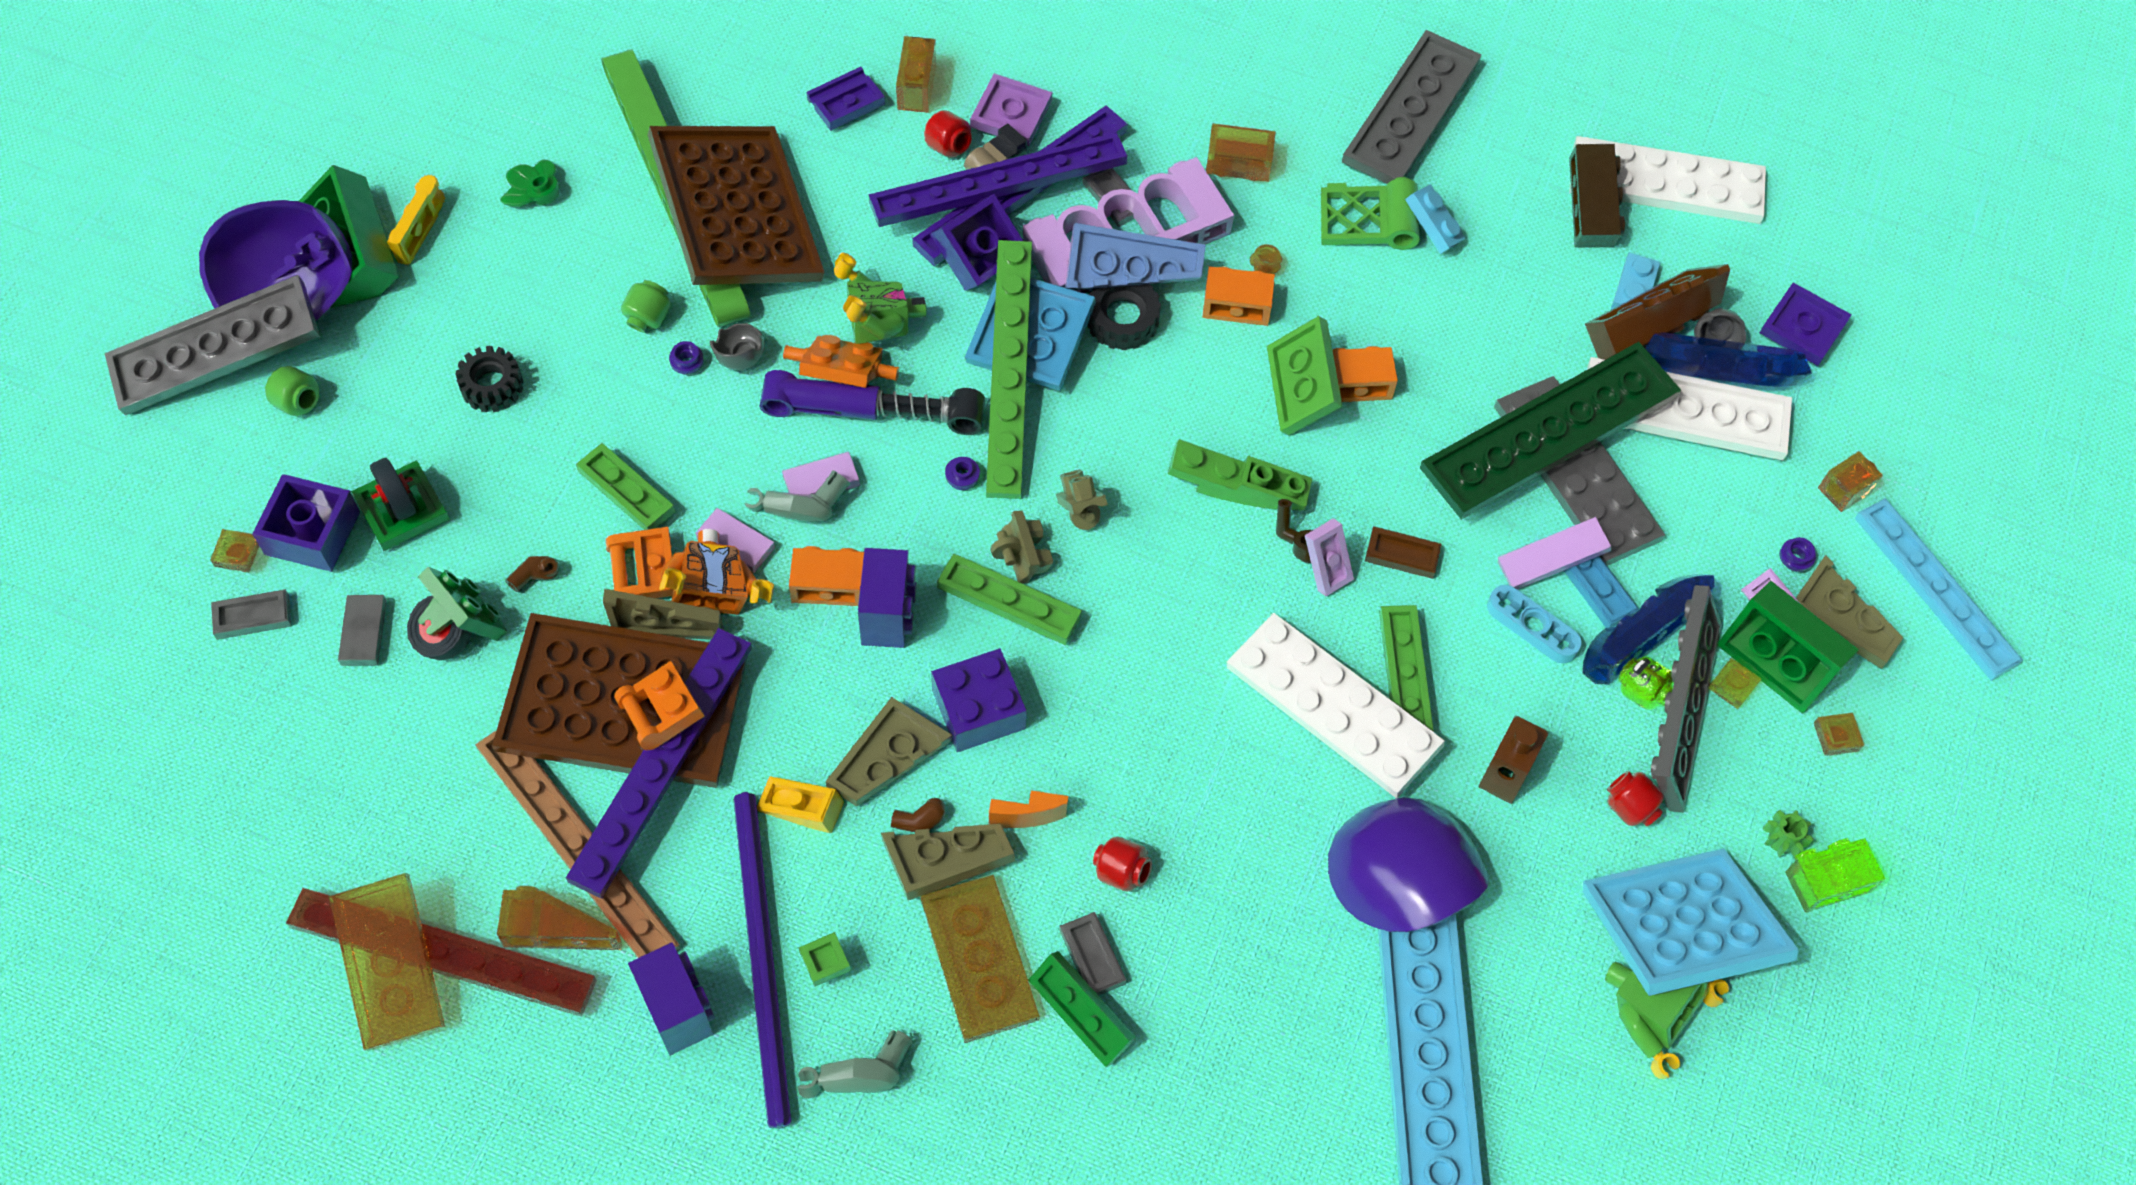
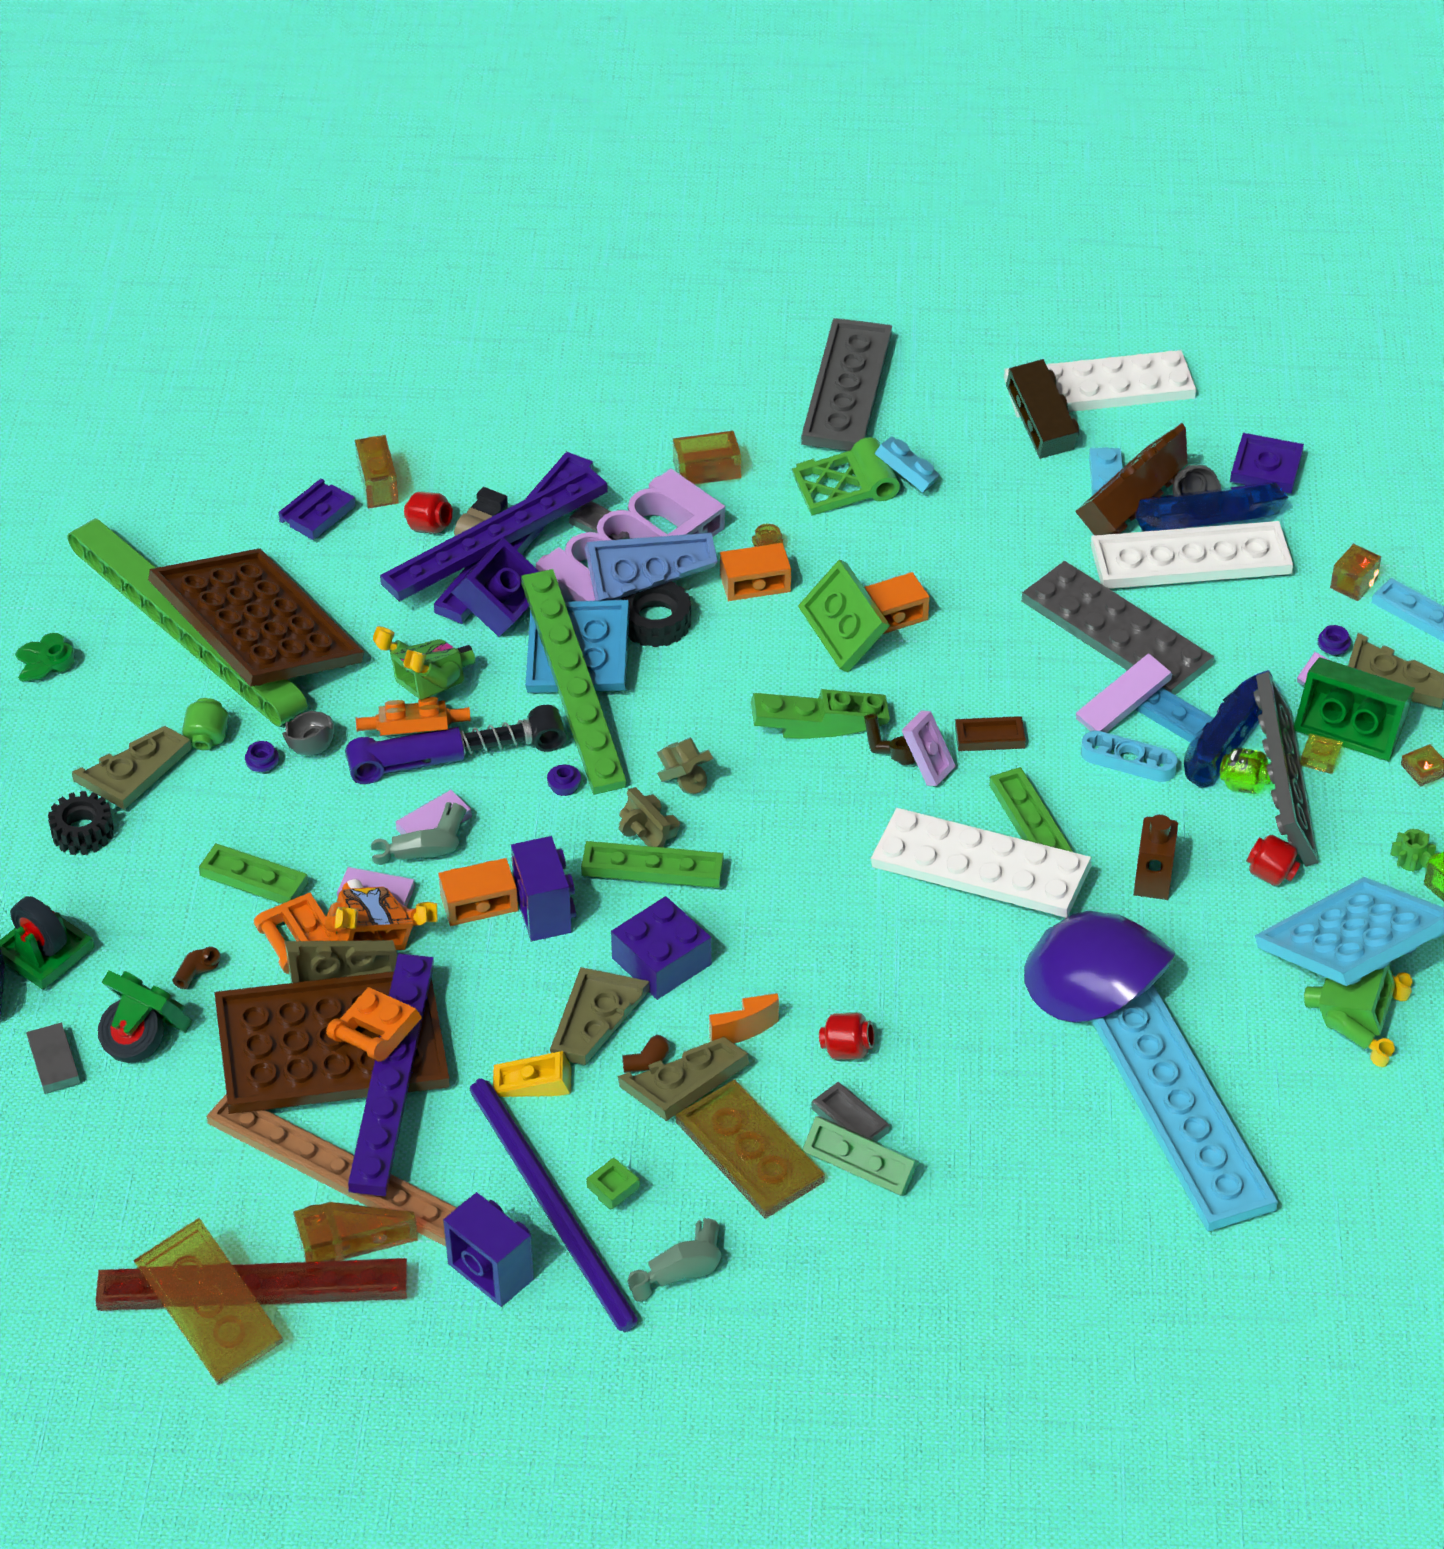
camera: 15 degrees left, 15 degrees down
(560, 335) = (133, 771): none -> olive wing
(1011, 103) = (472, 471): medium lavender plate -> none
(1549, 430) = (1079, 599): dark green plate -> none

